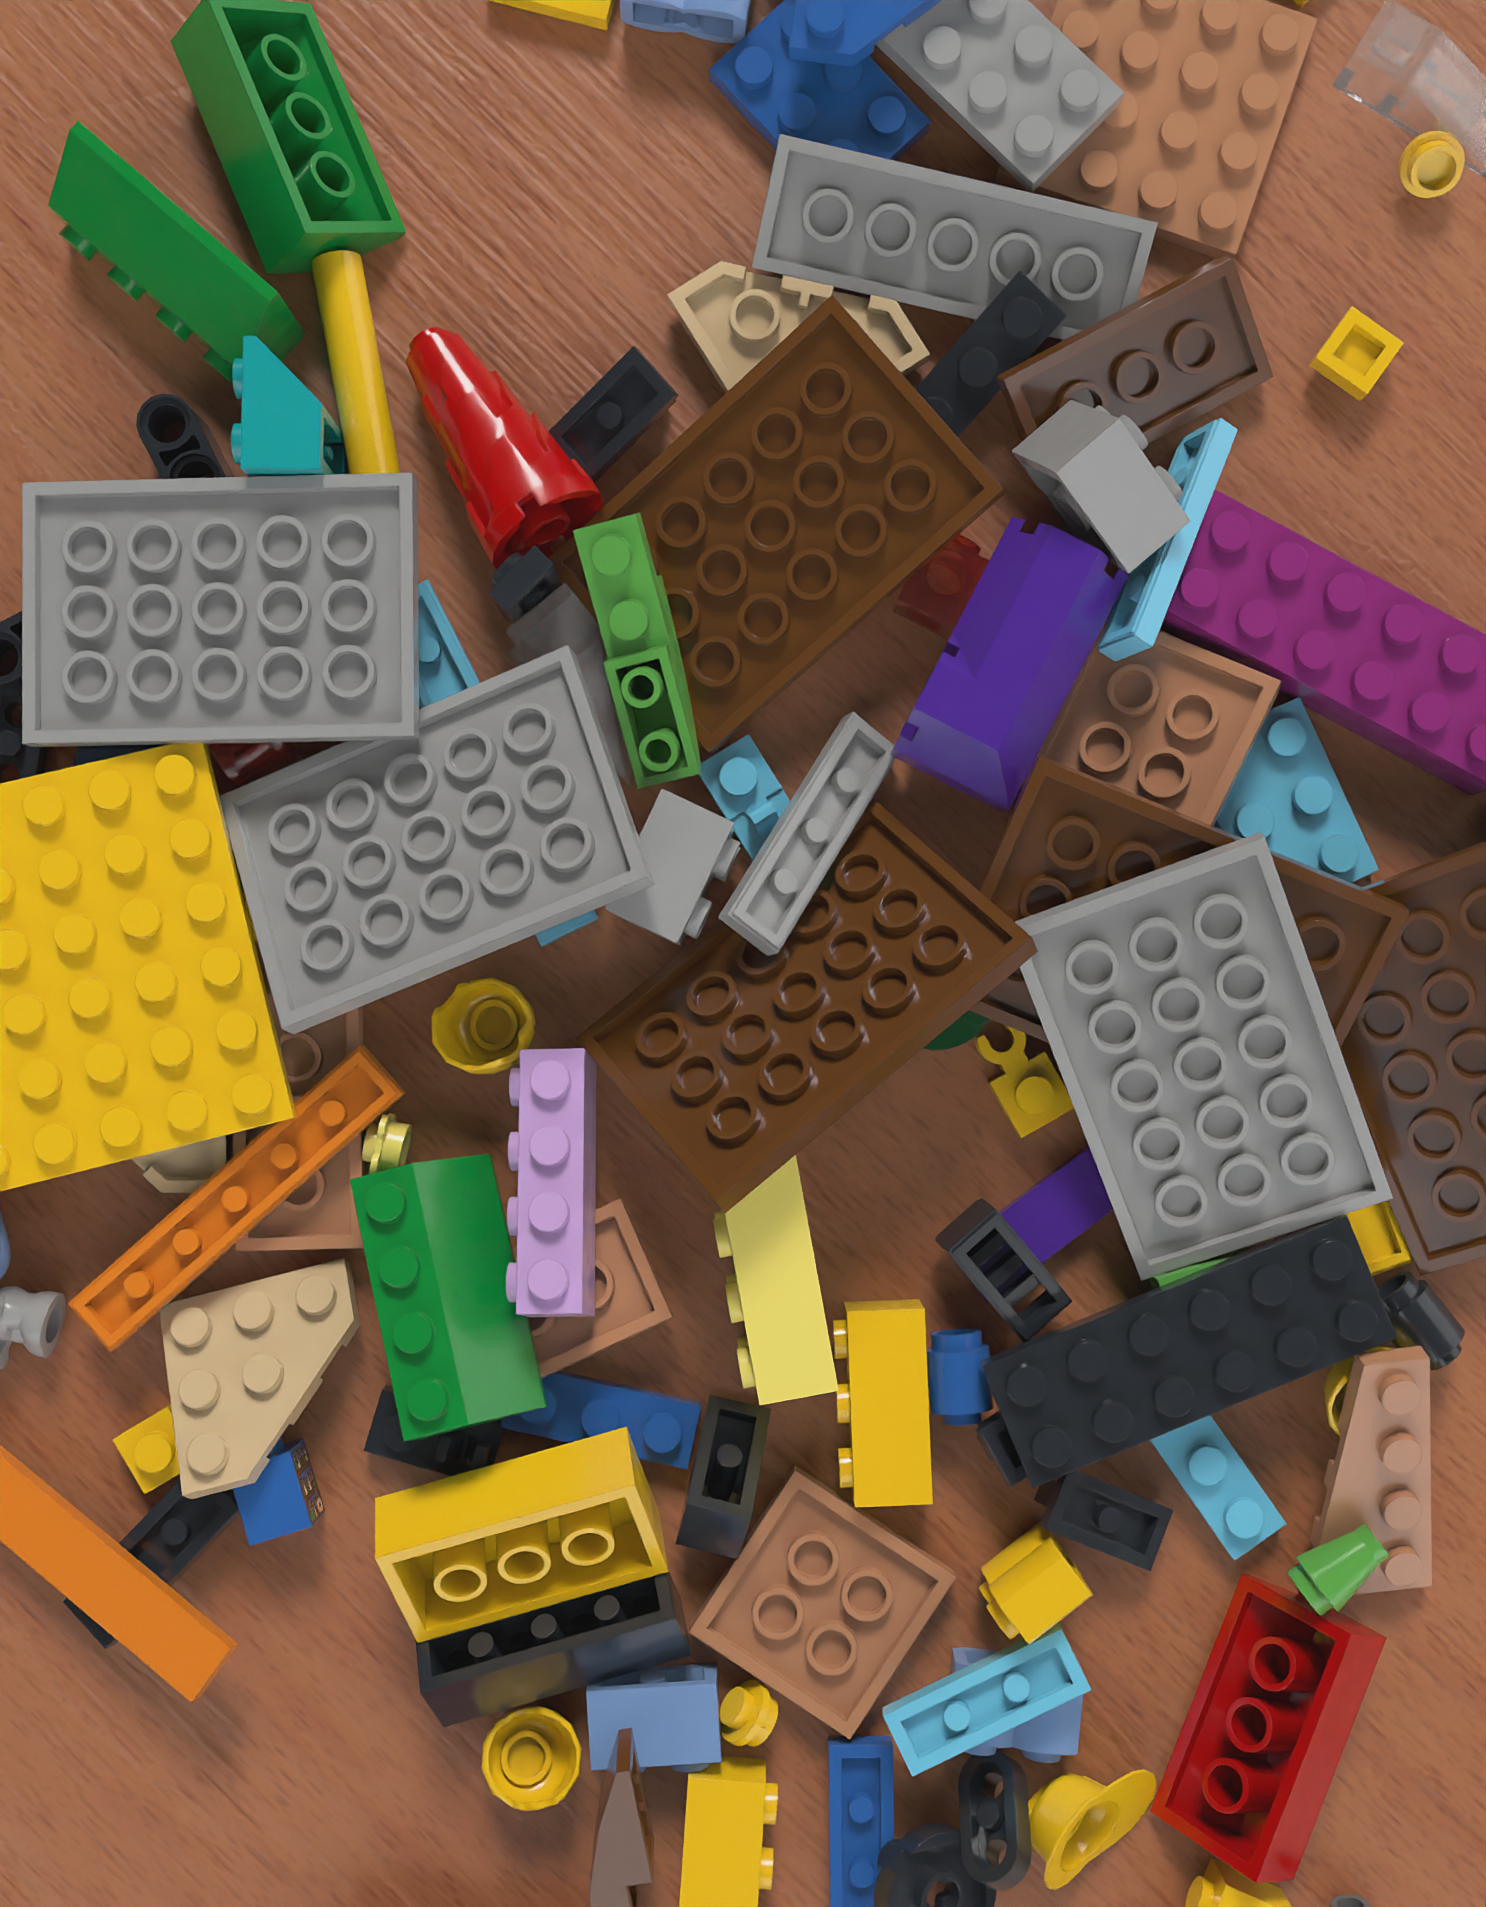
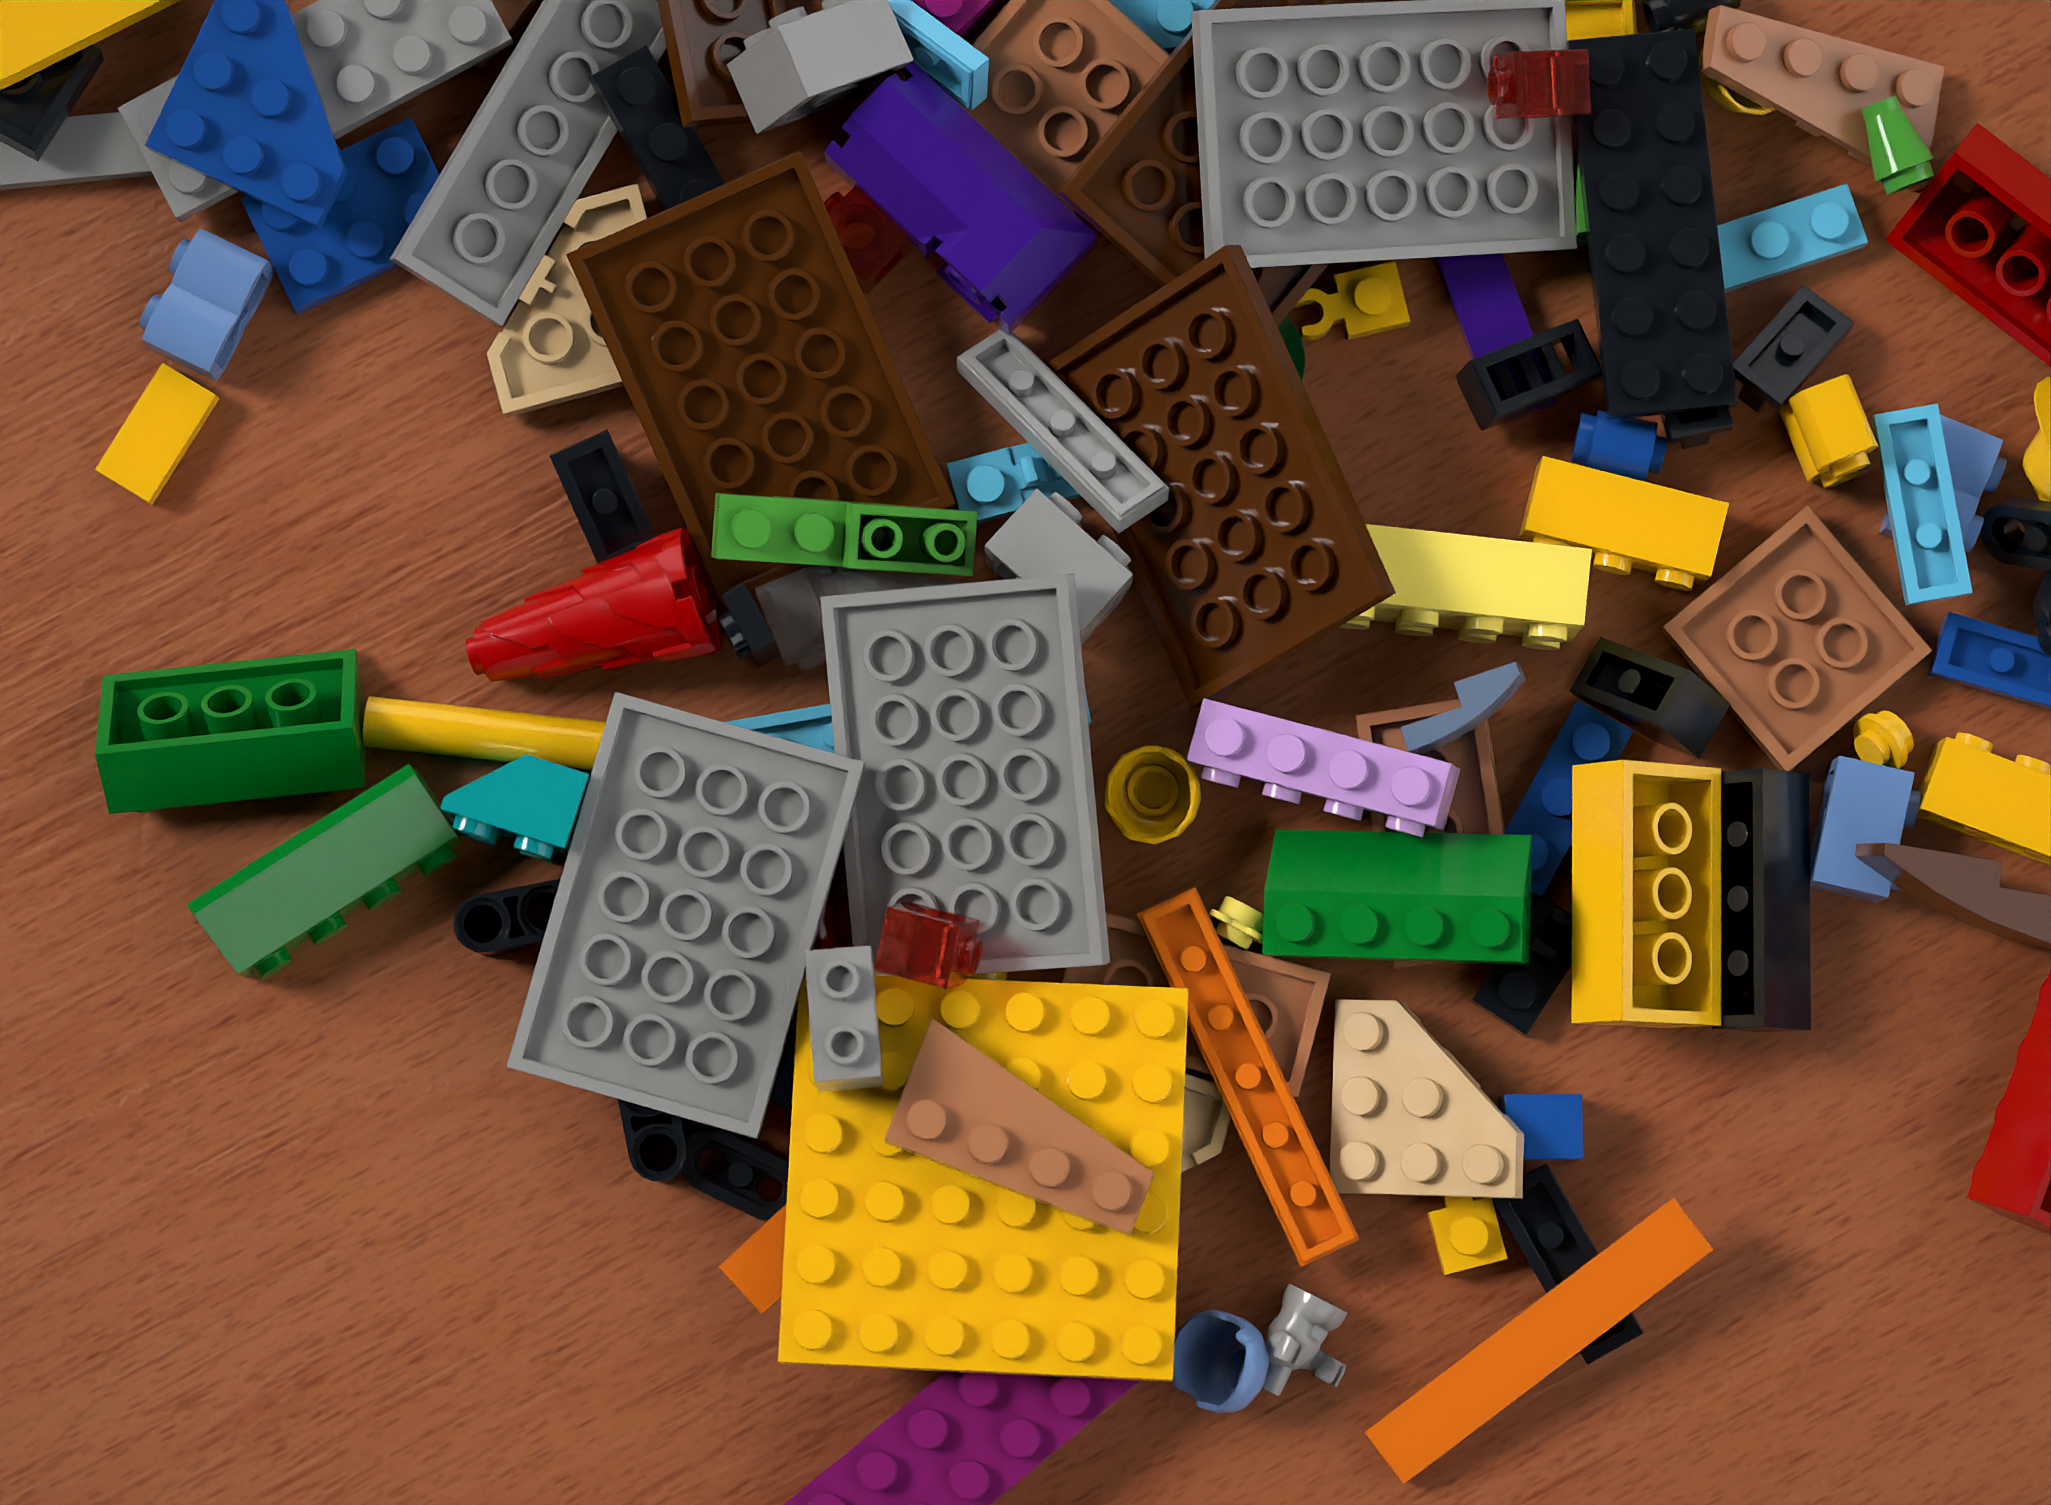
camera: 75 degrees left, 5 degrees down
(86, 987) = (1004, 1132): none -> nougat wing
(146, 790) = (843, 1018): none -> light grey brick
(254, 852) = (929, 945): none -> clear red brick
(531, 1758) = (1863, 954): yellow hair -> none
(660, 1317) = (1479, 698): none -> sand blue slope
(1294, 1203) = (1540, 84): none -> clear red brick

